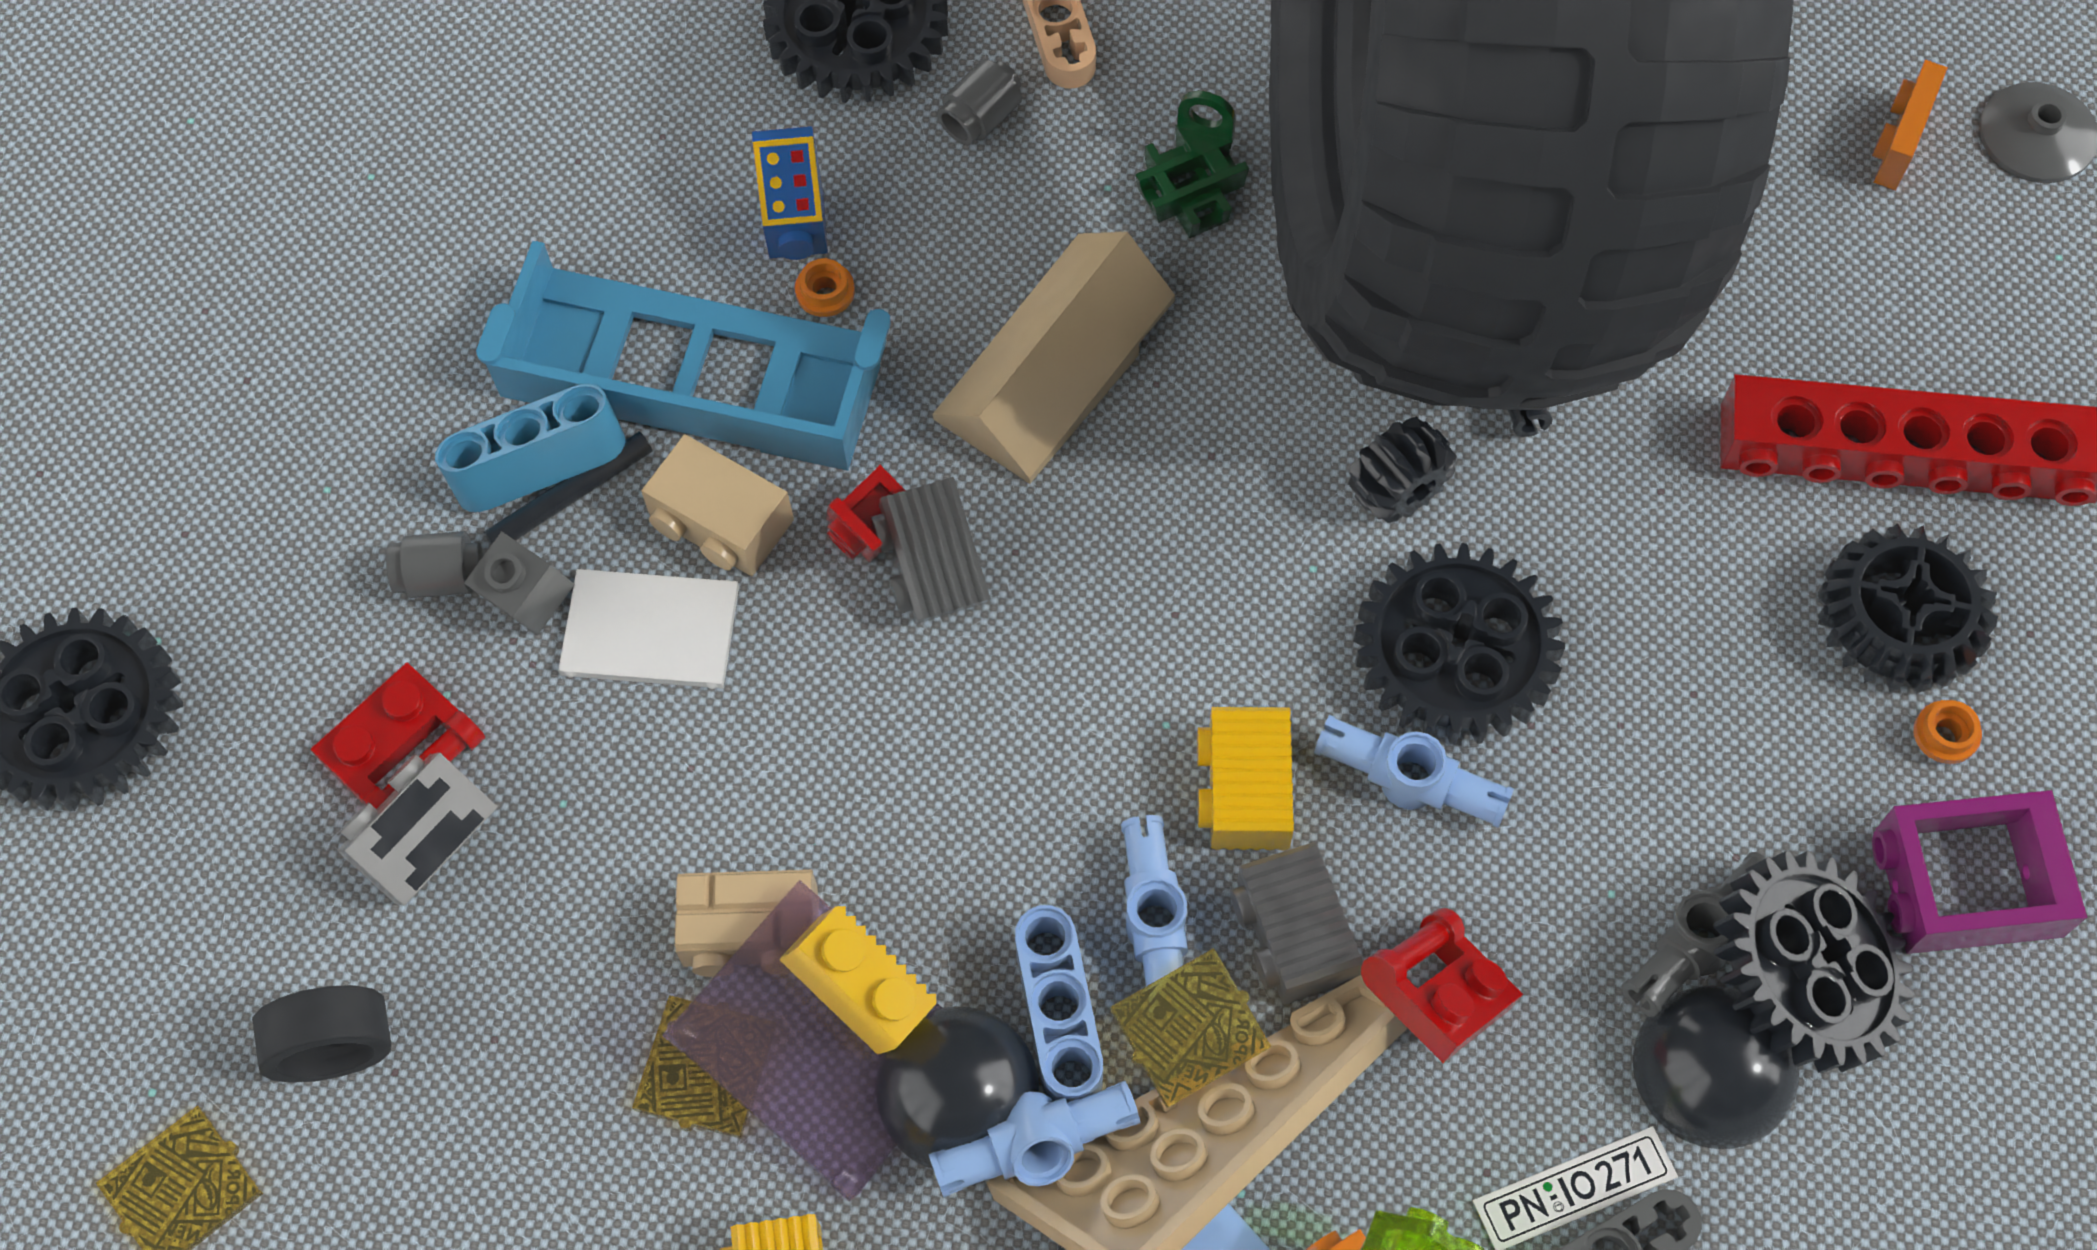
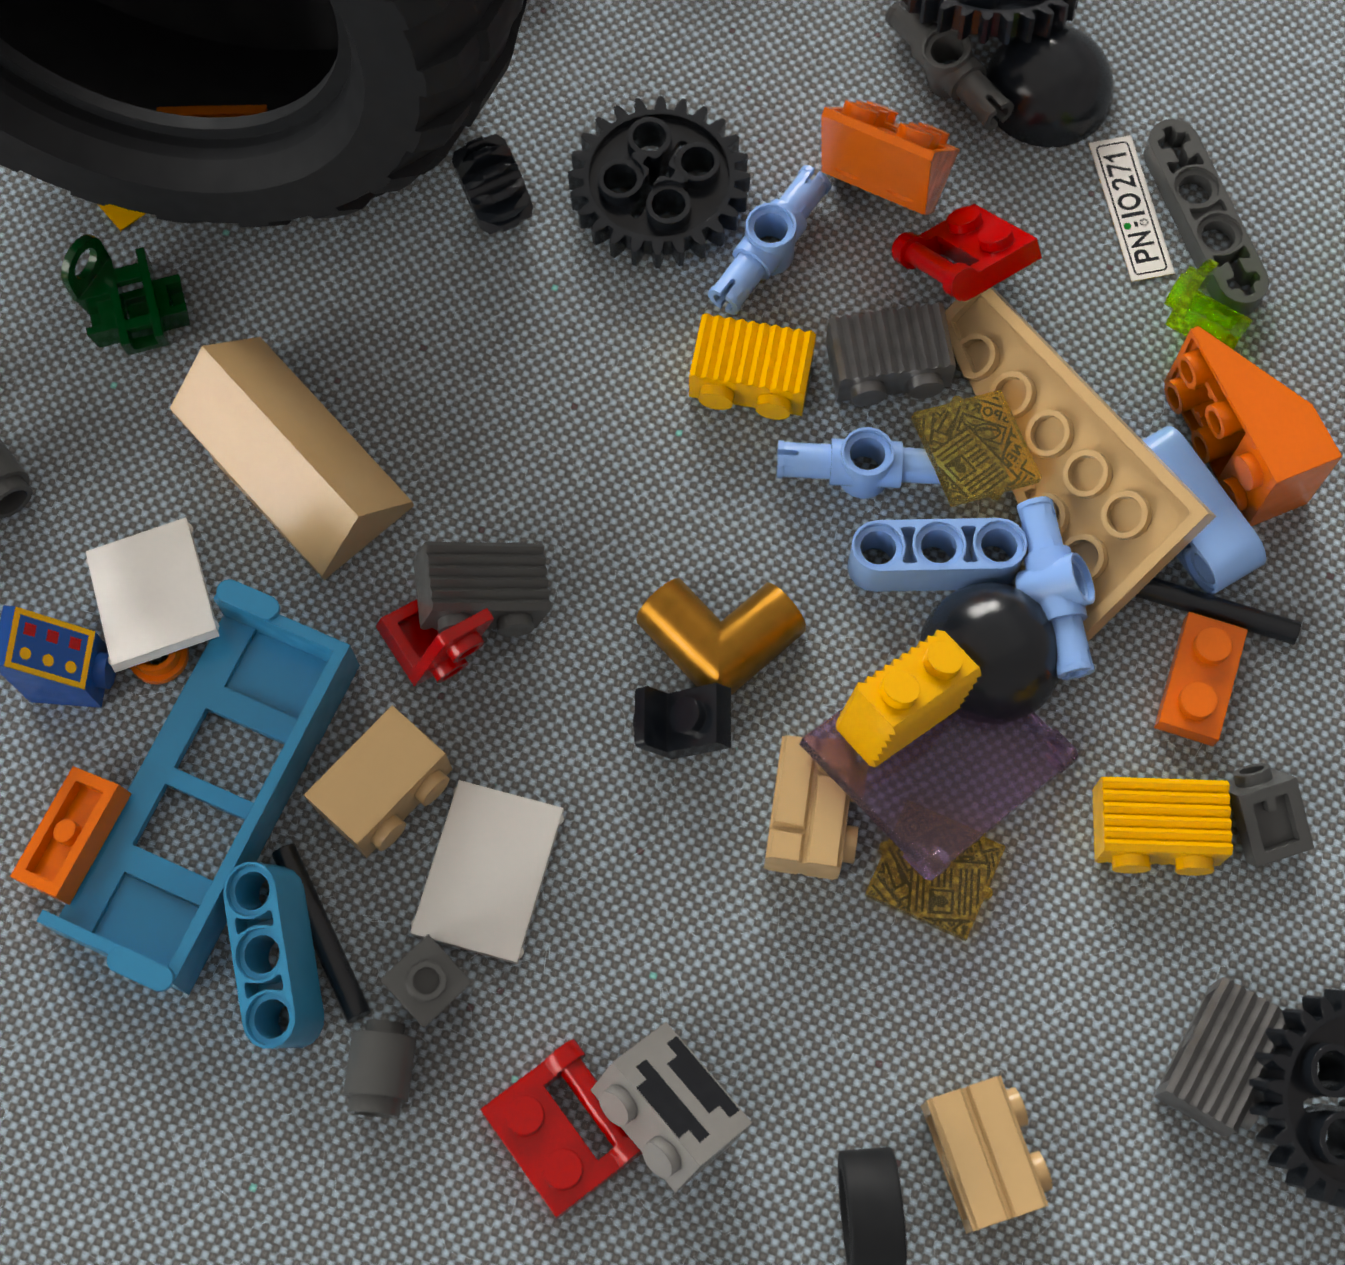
camera: 80 degrees left, 5 degrees up
(398, 1150) = (986, 1153): none -> tan brick
(631, 257) = (71, 835): none -> orange plate
(822, 771) = (683, 721): none -> black bracket
(880, 265) = (151, 594): none -> white piece
(914, 806) = (715, 649): none -> pearl gold brick
(1537, 866) = (885, 157): none -> orange slope

